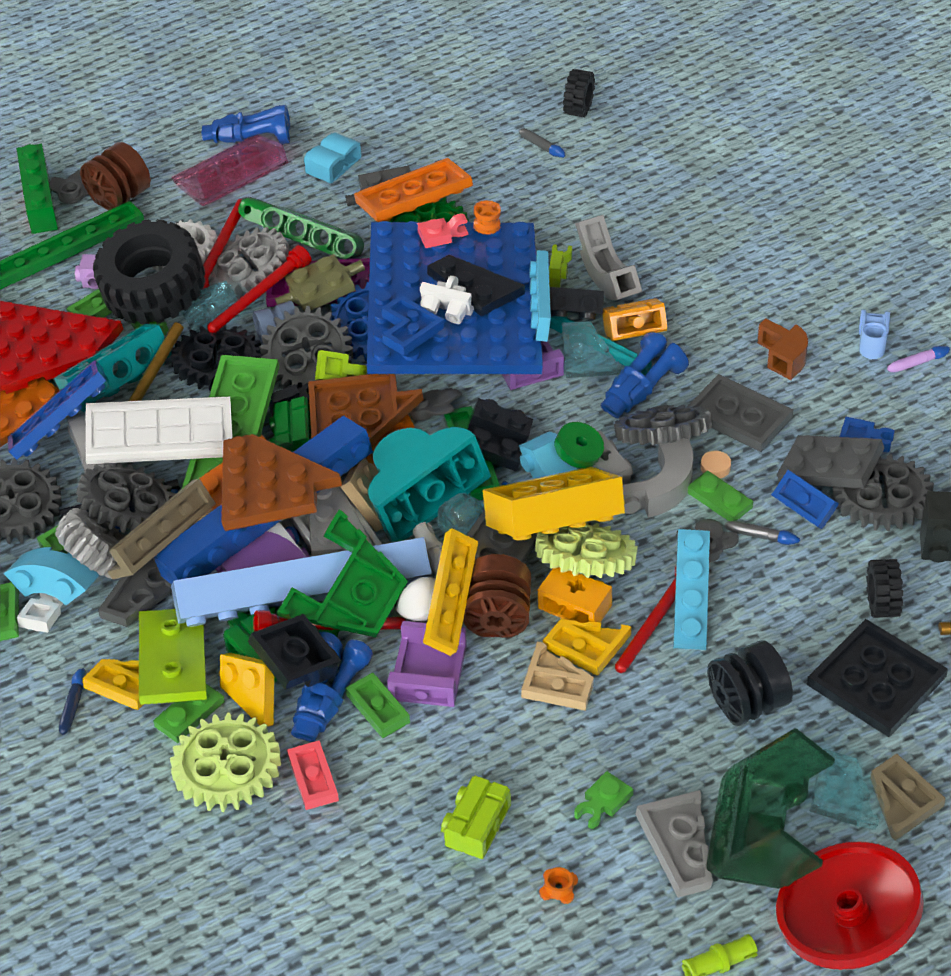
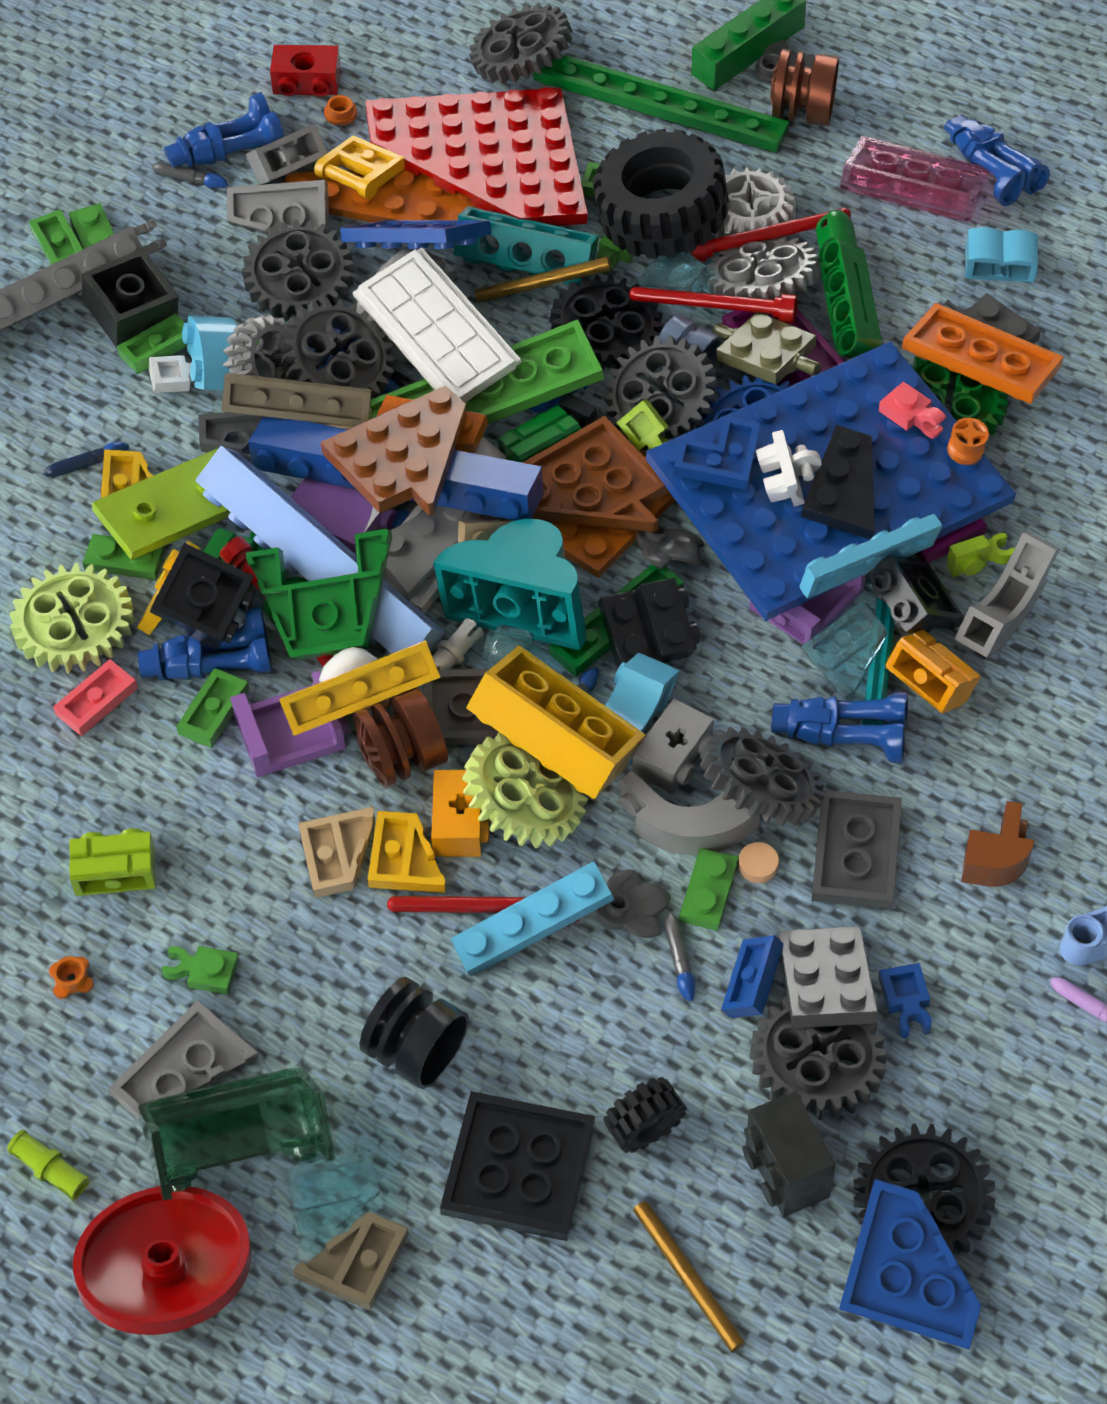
camera: 60 degrees right, 10 degrees up
(583, 434) = (664, 688): green piece -> none

